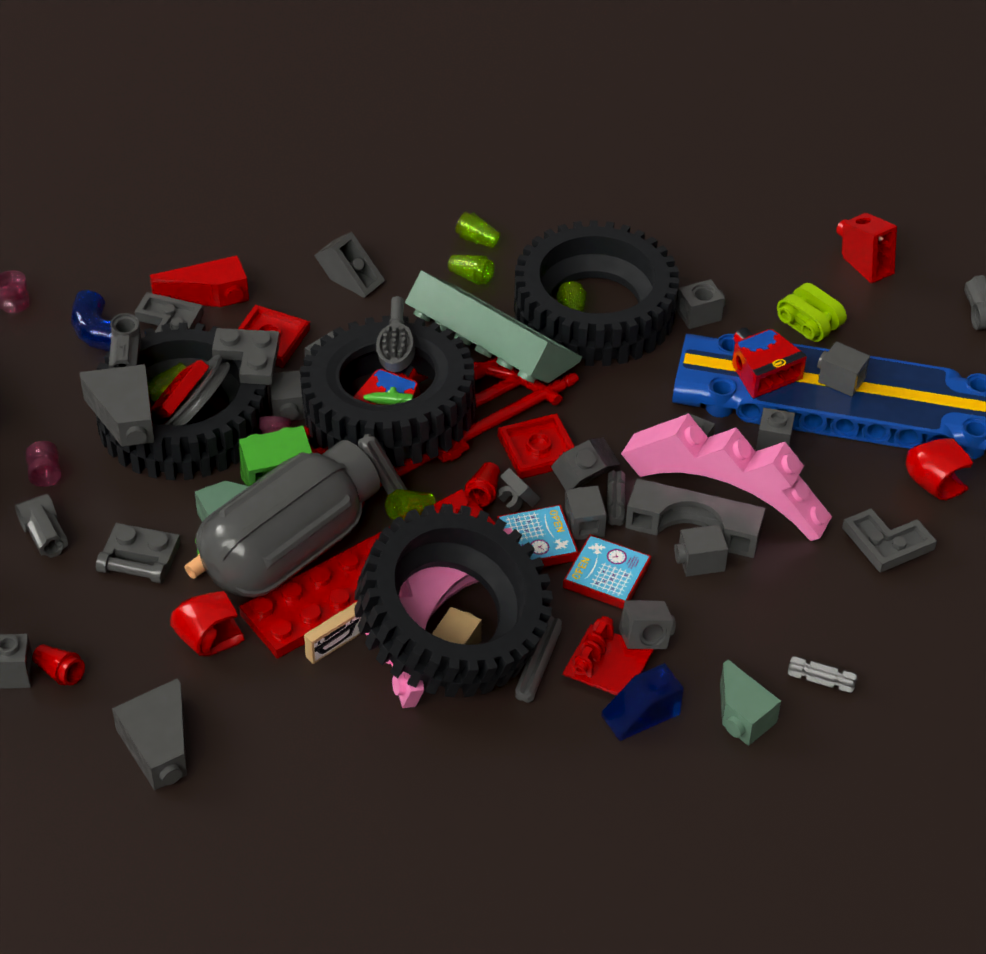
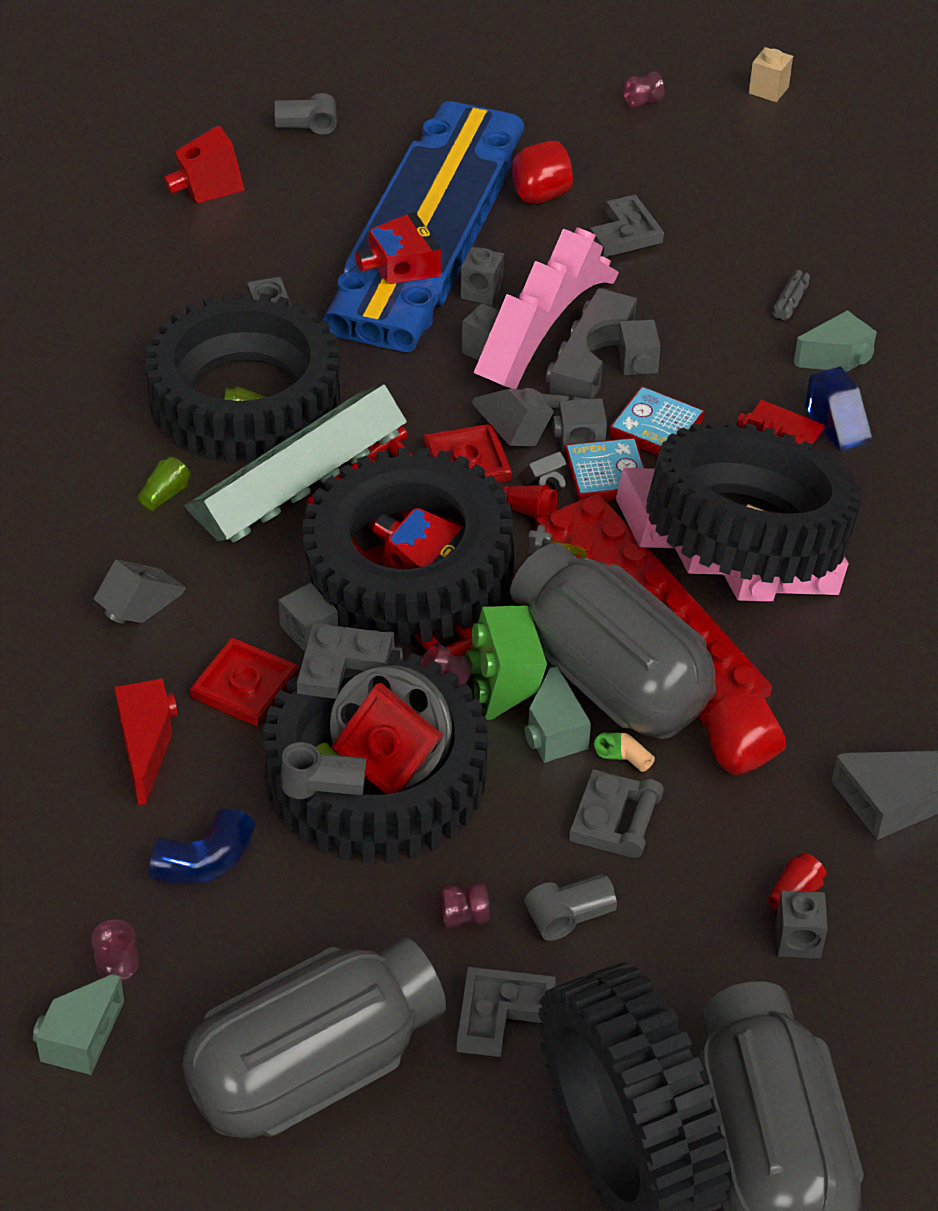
camera: 85 degrees left, 0 degrees up
(121, 402) = (433, 773): dark grey slope -> none
(166, 310) = (202, 767): dark grey plate -> none
(331, 634) = (749, 631): tile -> none
(389, 397) = (439, 531): bright green helmet -> none
(395, 342) = (358, 510): dark grey piece -> none
(476, 230) = (93, 474): clear neon green cone -> none
(646, 624) = (744, 391): dark grey brick -> none
(811, 312) = (297, 228): lime brick -> none
(843, 368) = (421, 195): dark grey brick -> none

